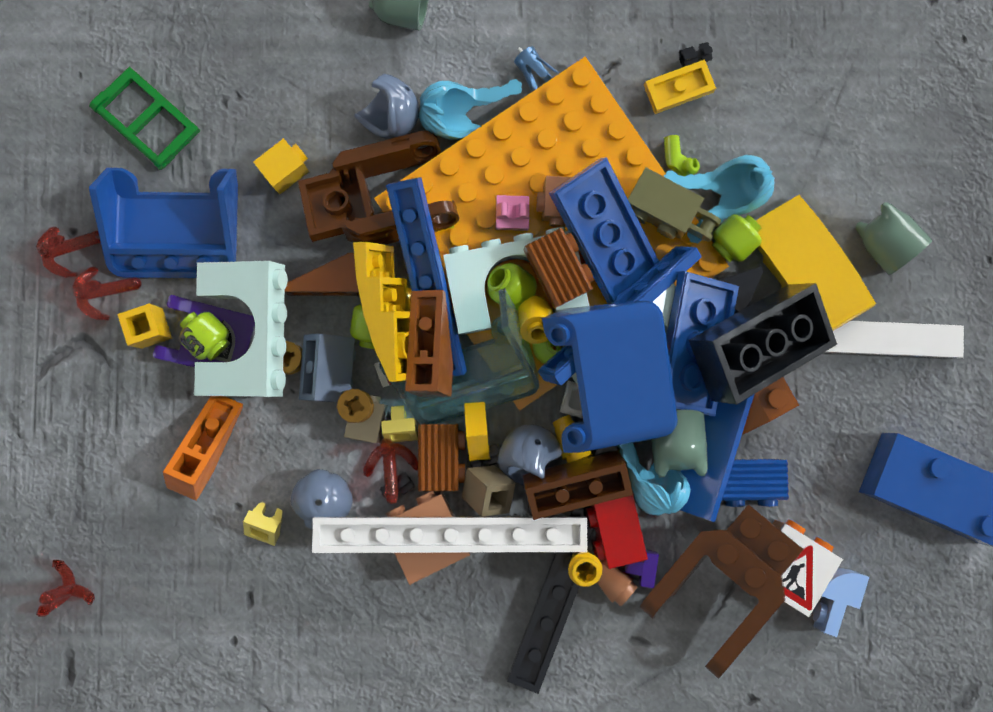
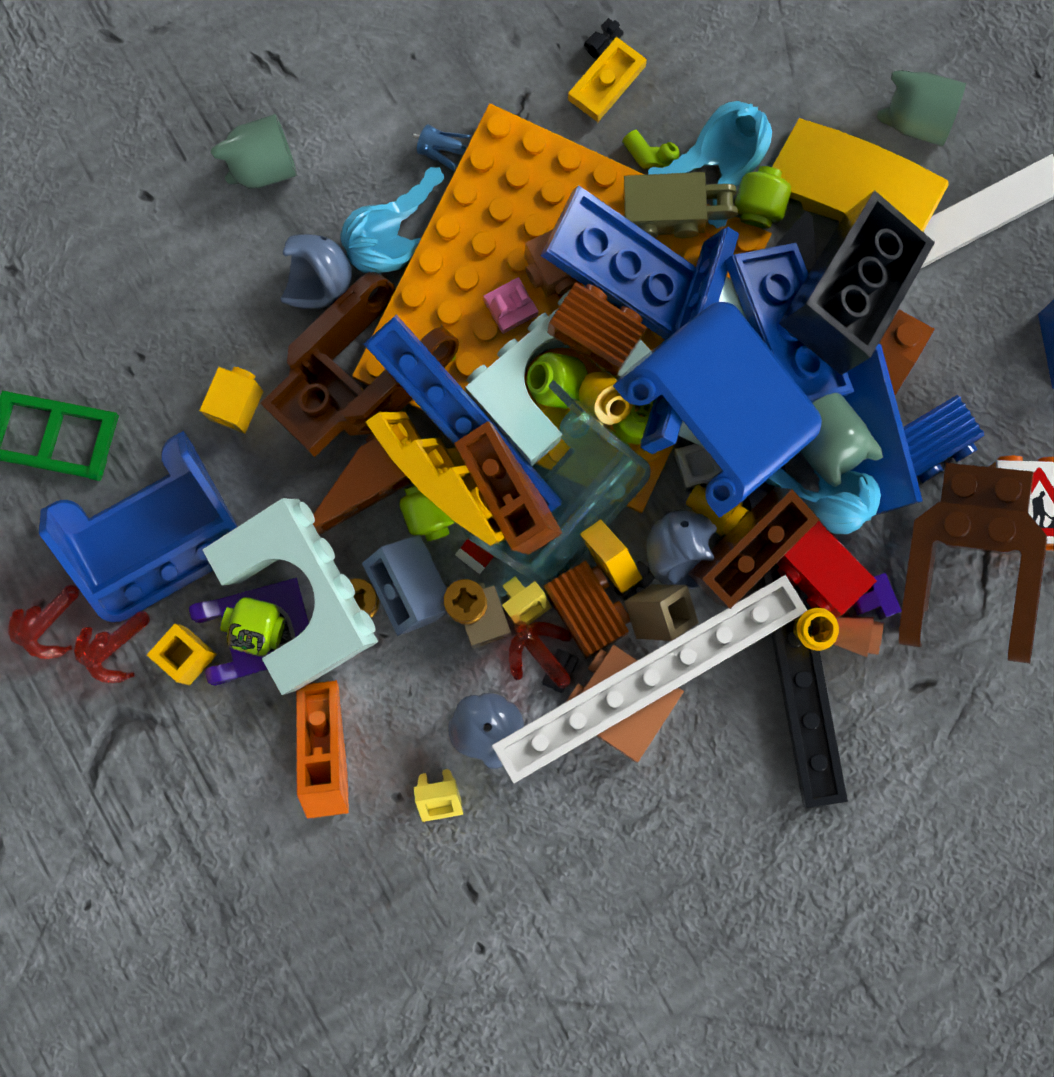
camera: 20 degrees left, 5 degrees down
(57, 596) = (256, 1005): clear red piece -> none

